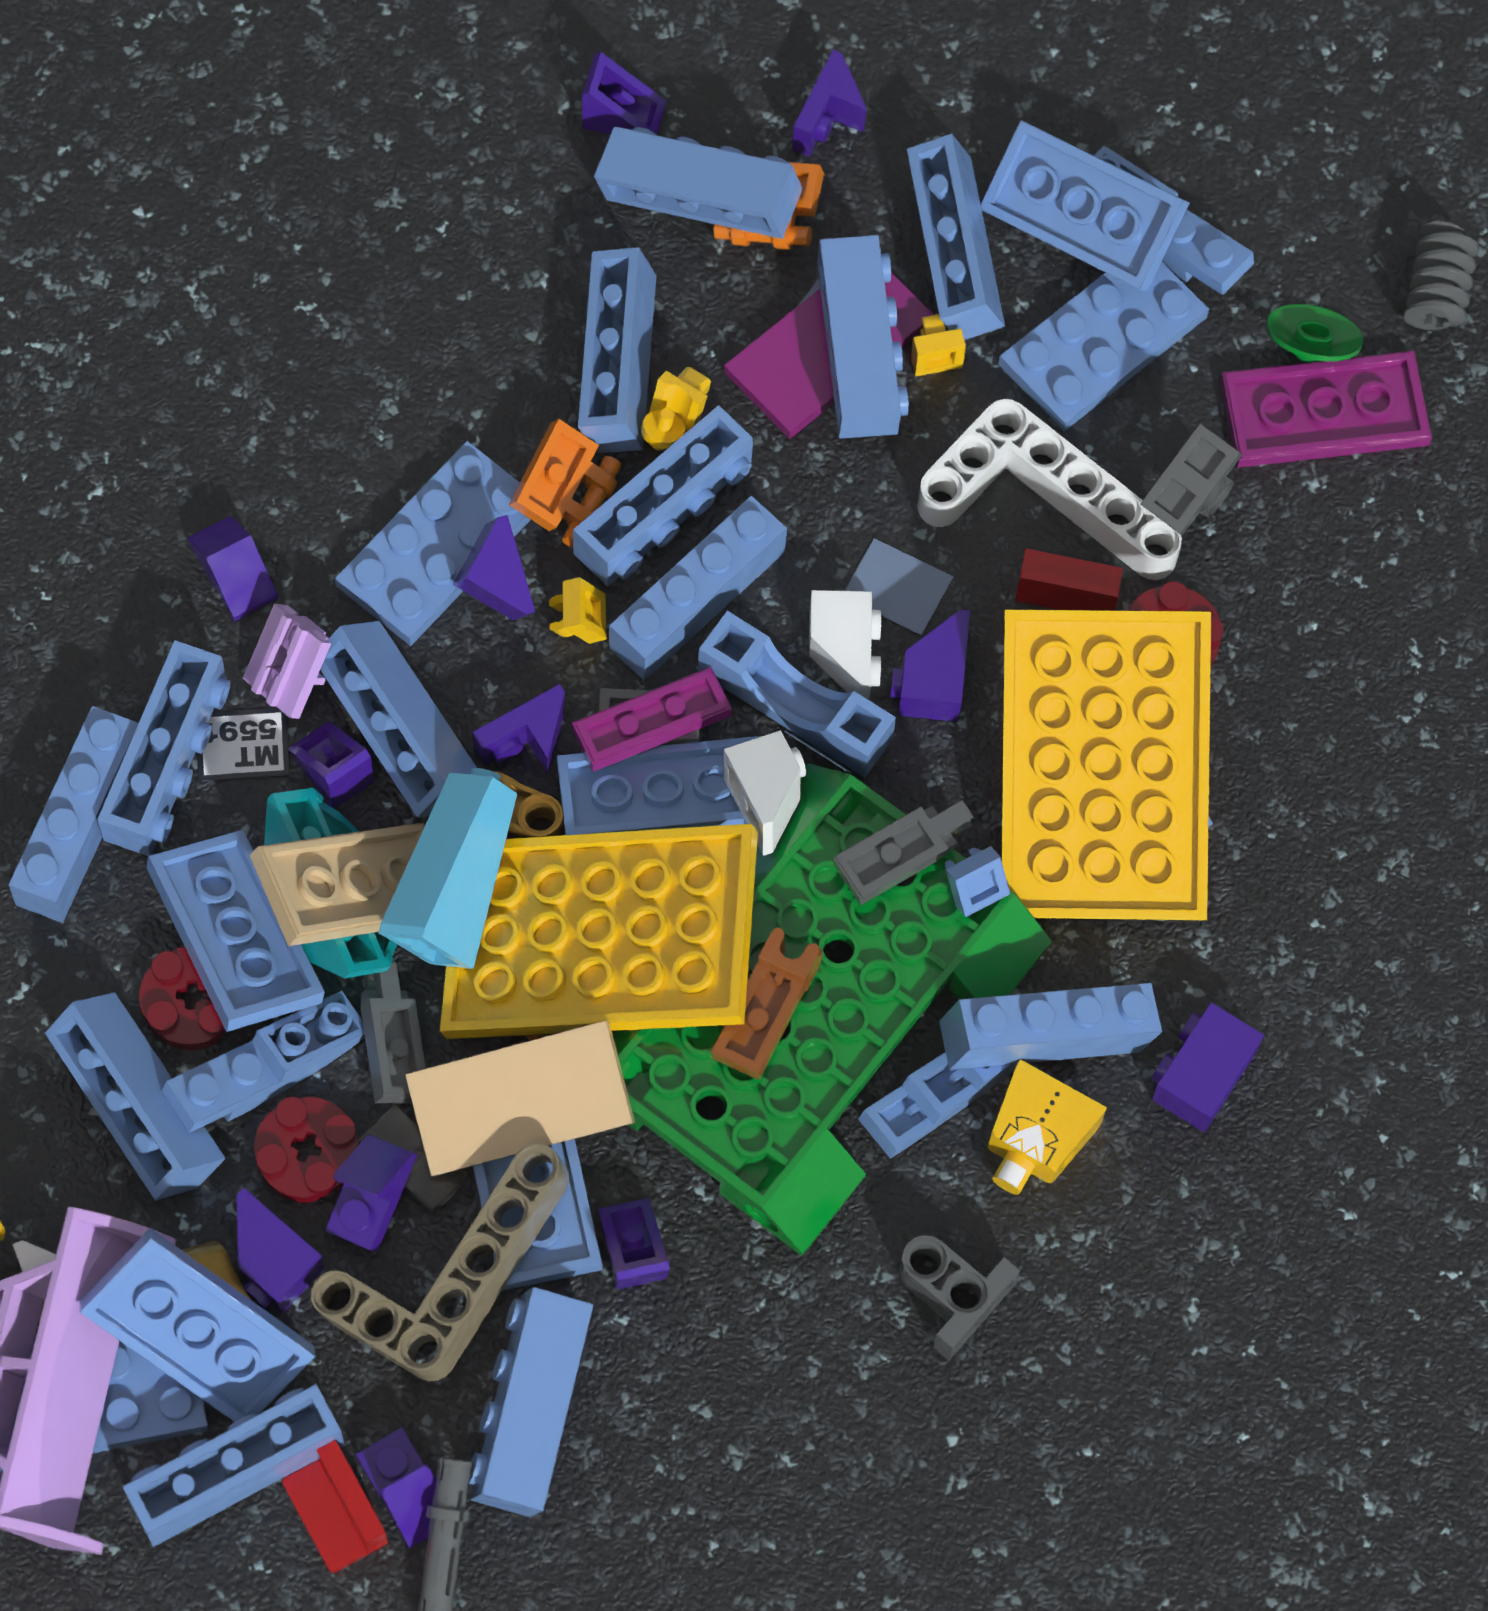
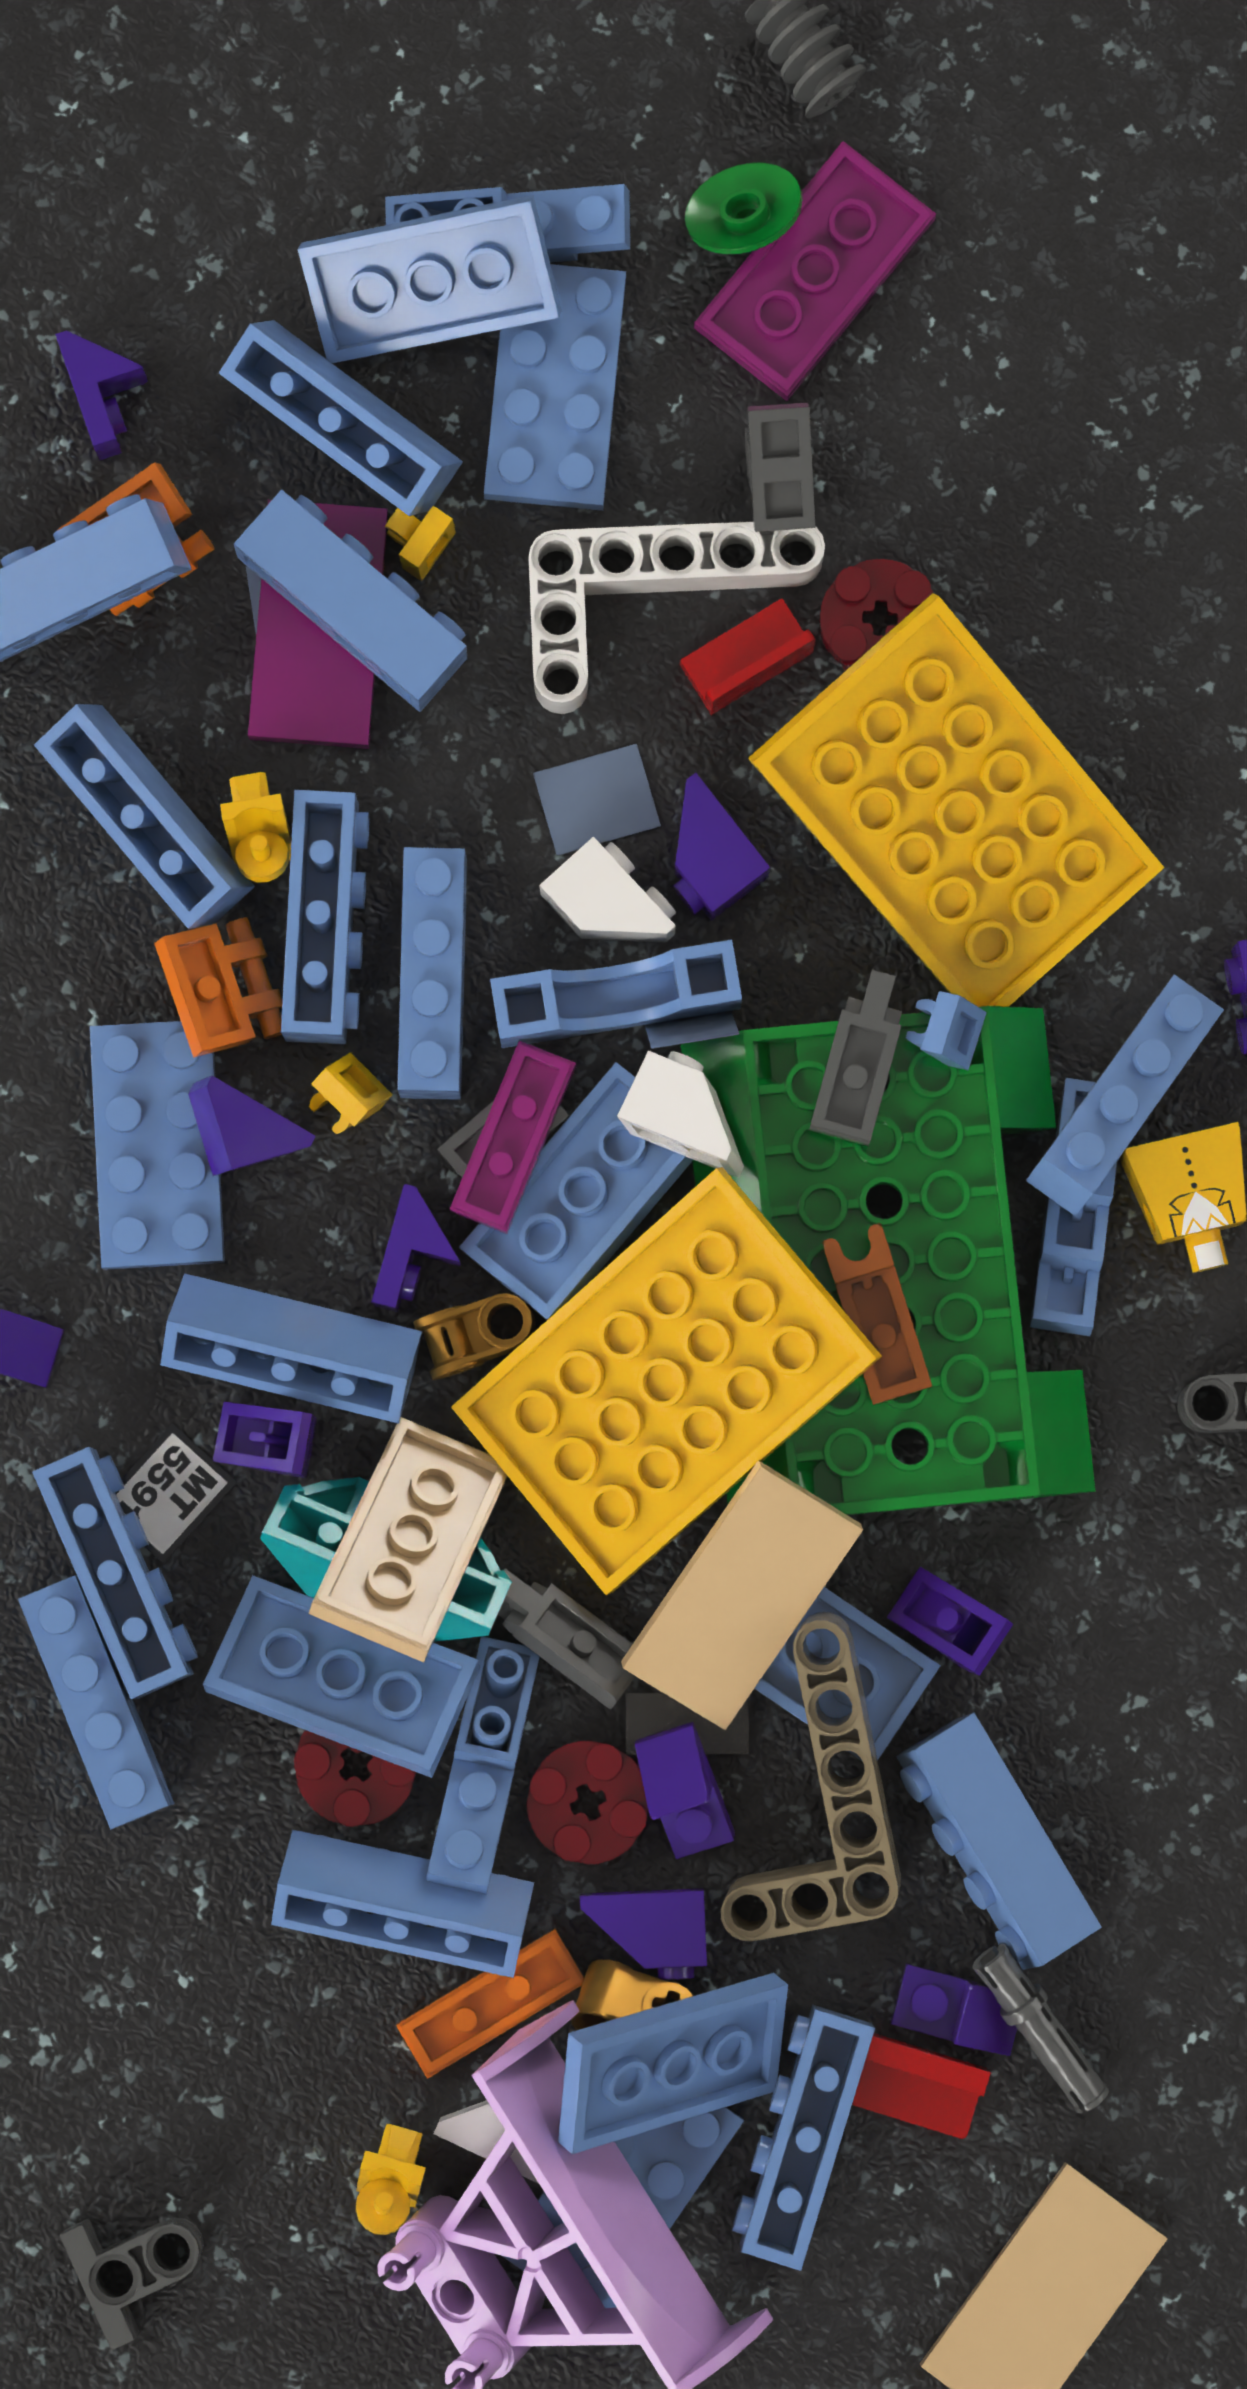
camera: 40 degrees left, 15 degrees up
(173, 1216) = (490, 2004): none -> orange tile
(287, 660) = (143, 1388): lavender piece -> none
(452, 871) = (487, 1449): medium azure slope -> none

